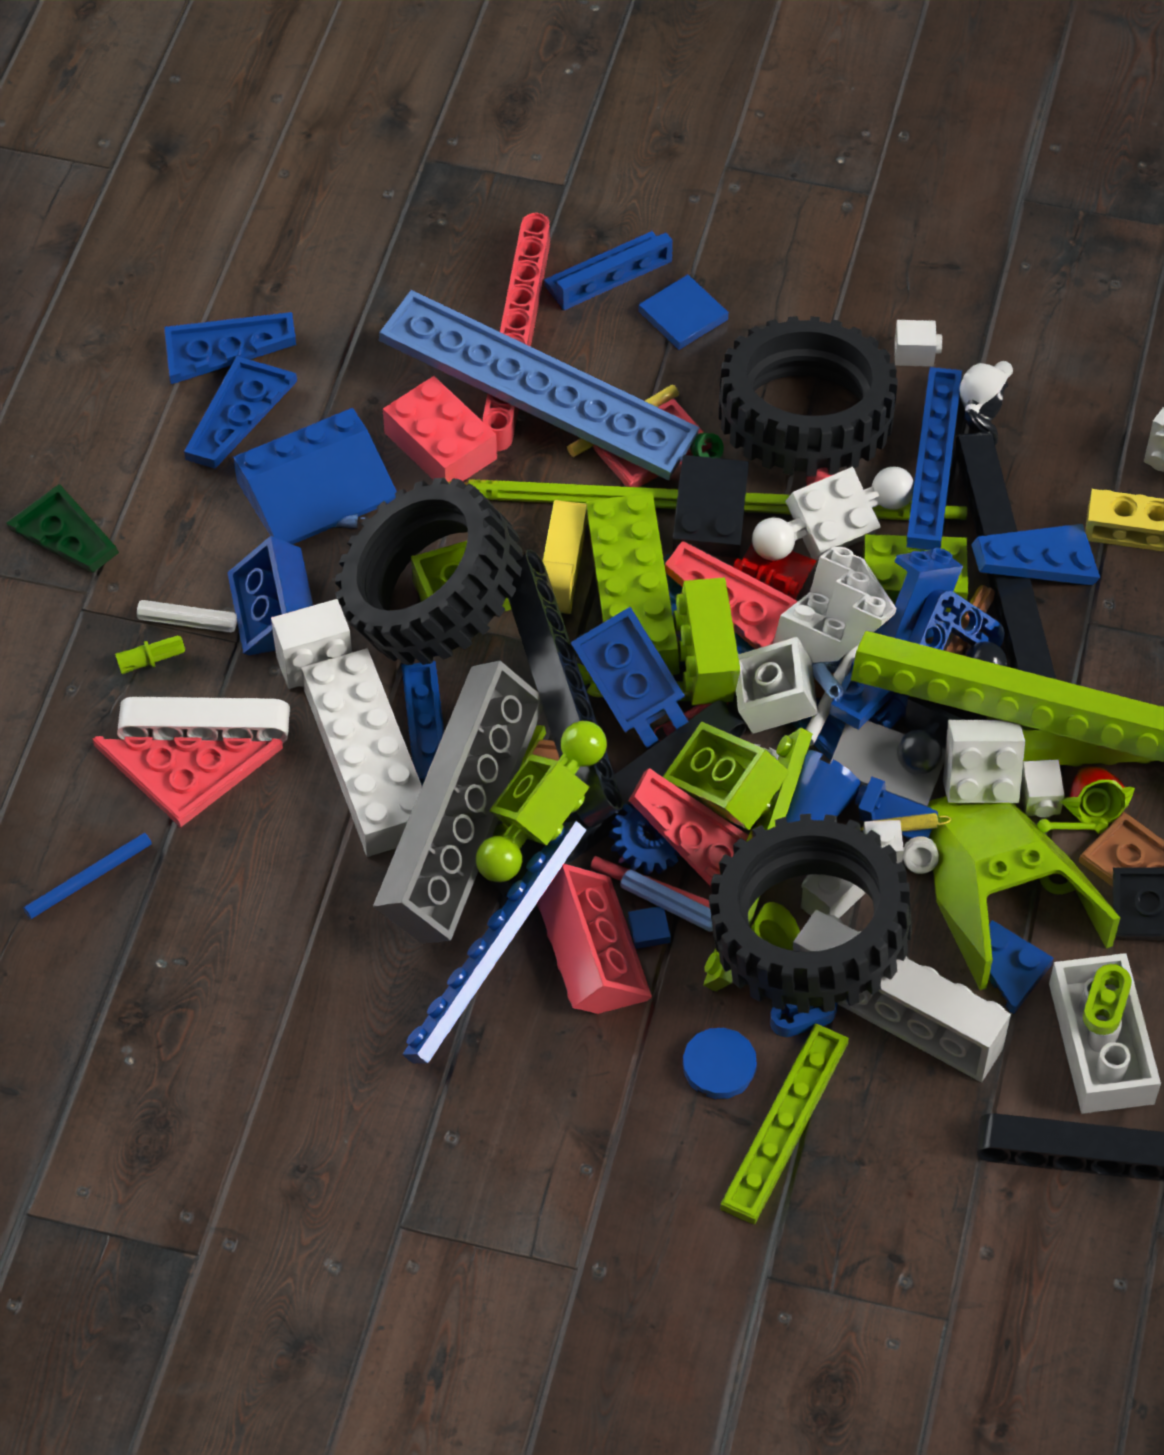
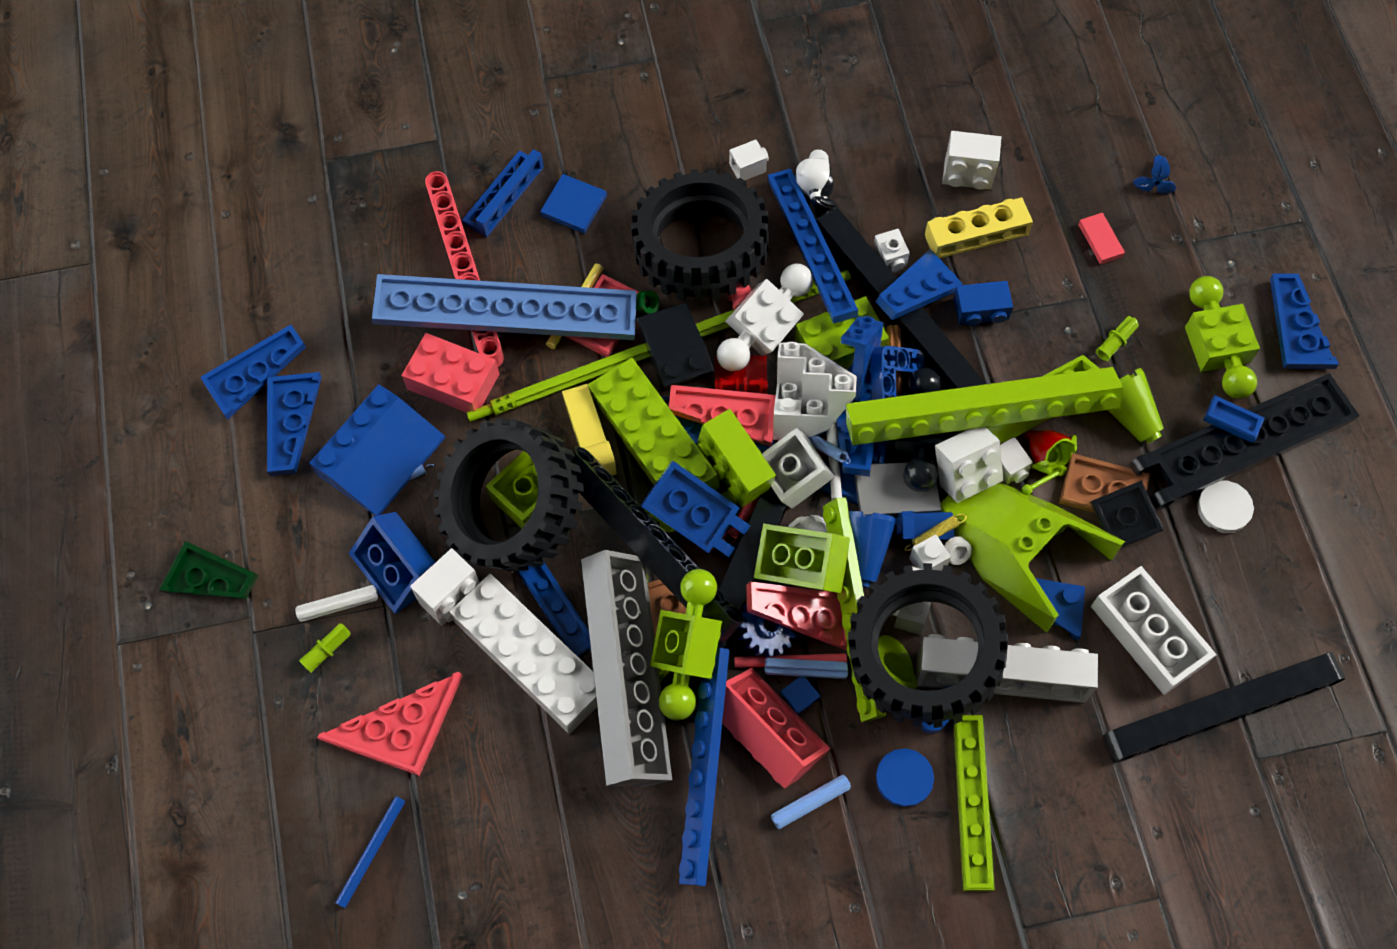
camera: 25 degrees left, 10 degrees up
(204, 718) = (393, 683): white beam -> none
(597, 1039) = (810, 801): none -> light blue axle
(1032, 504) = (892, 249): none -> white brick
(1106, 1001) = (1152, 611): lime plate -> none
(1111, 606) = (983, 303): none -> blue brick

